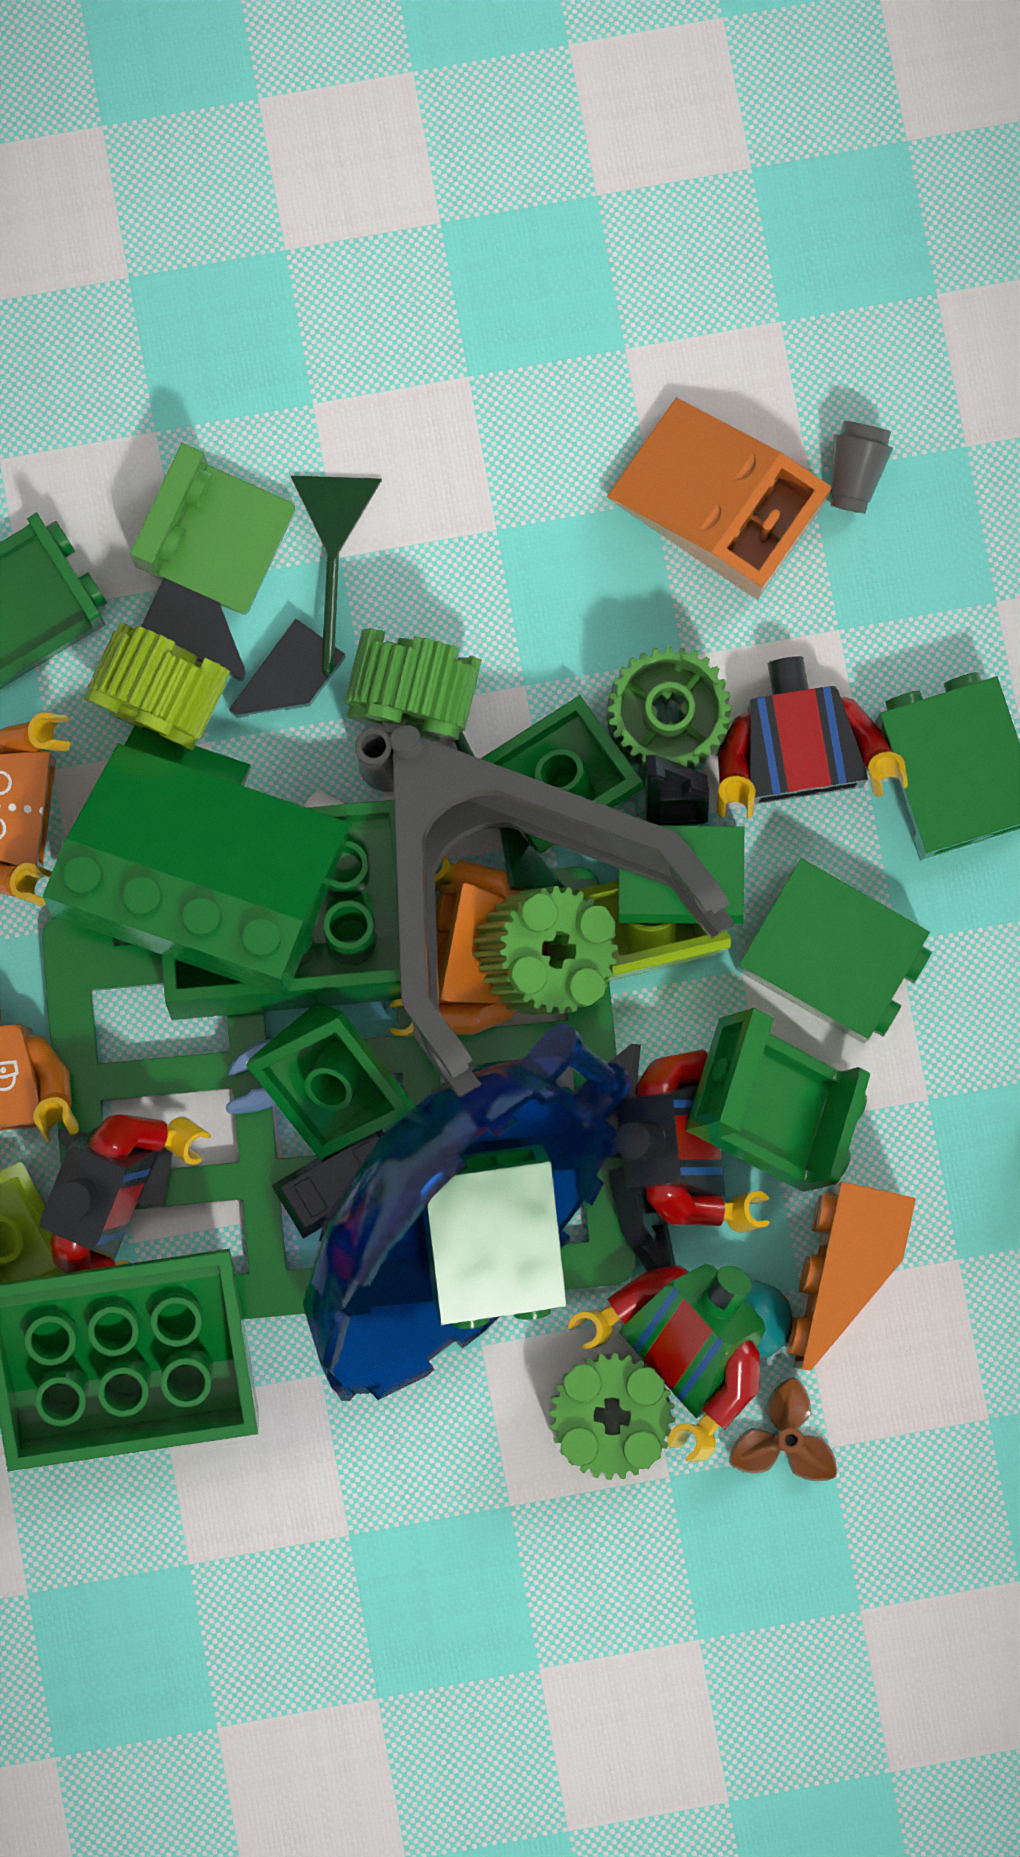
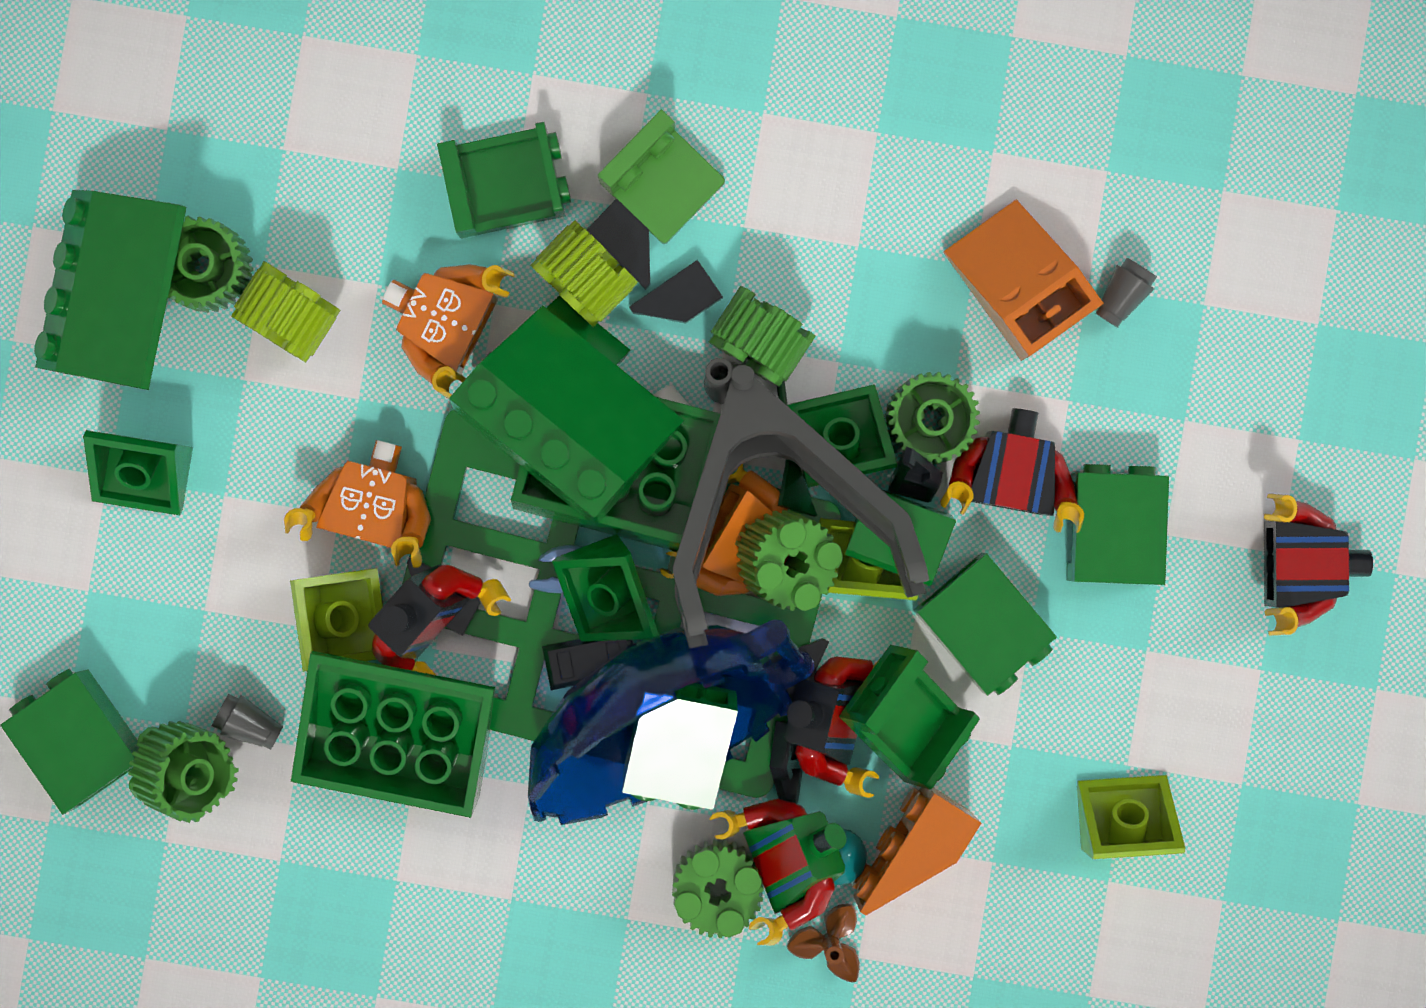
camera: 20 degrees right, 5 degrees up
(334, 510) = (751, 193): dark green piece -> none

